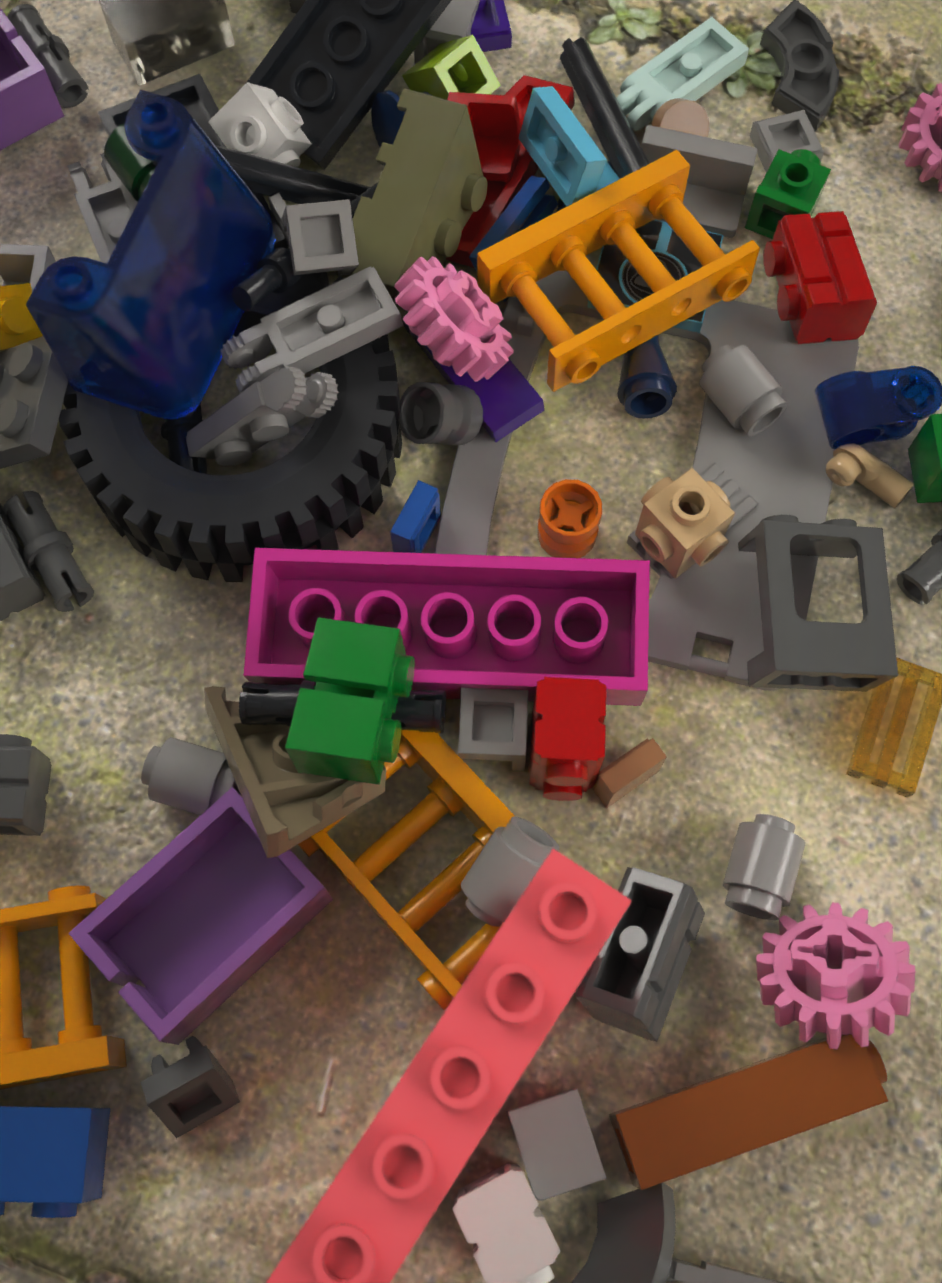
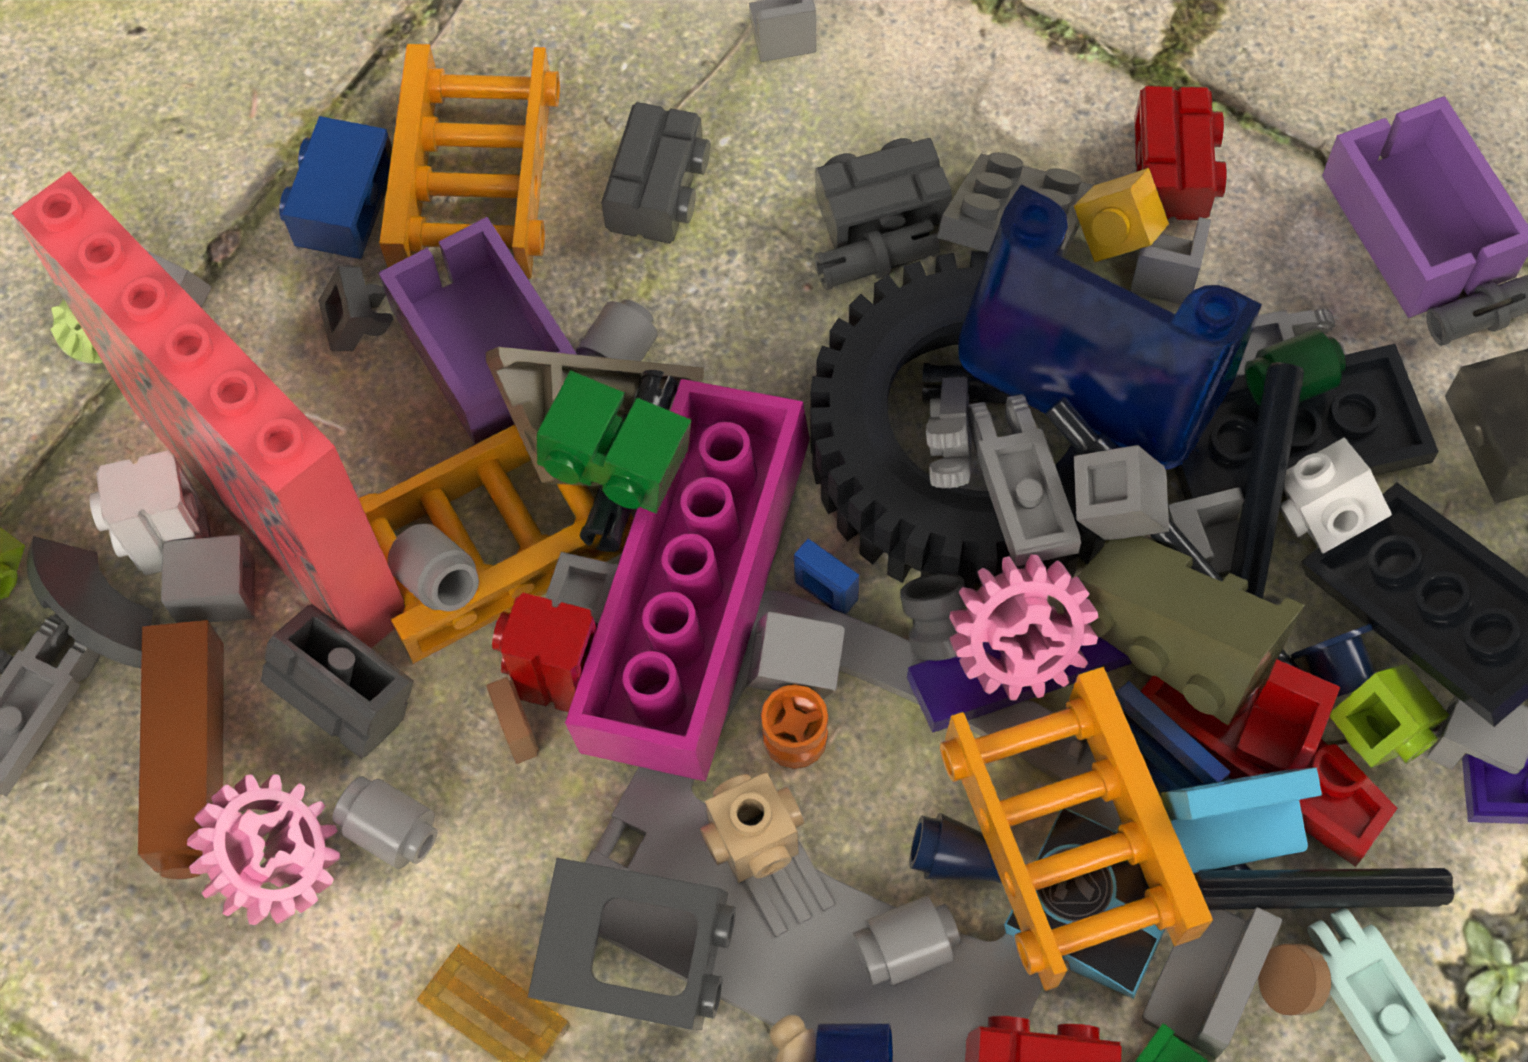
camera: 105 degrees right, 5 degrees down
(508, 518) = (795, 652): none -> light grey panel

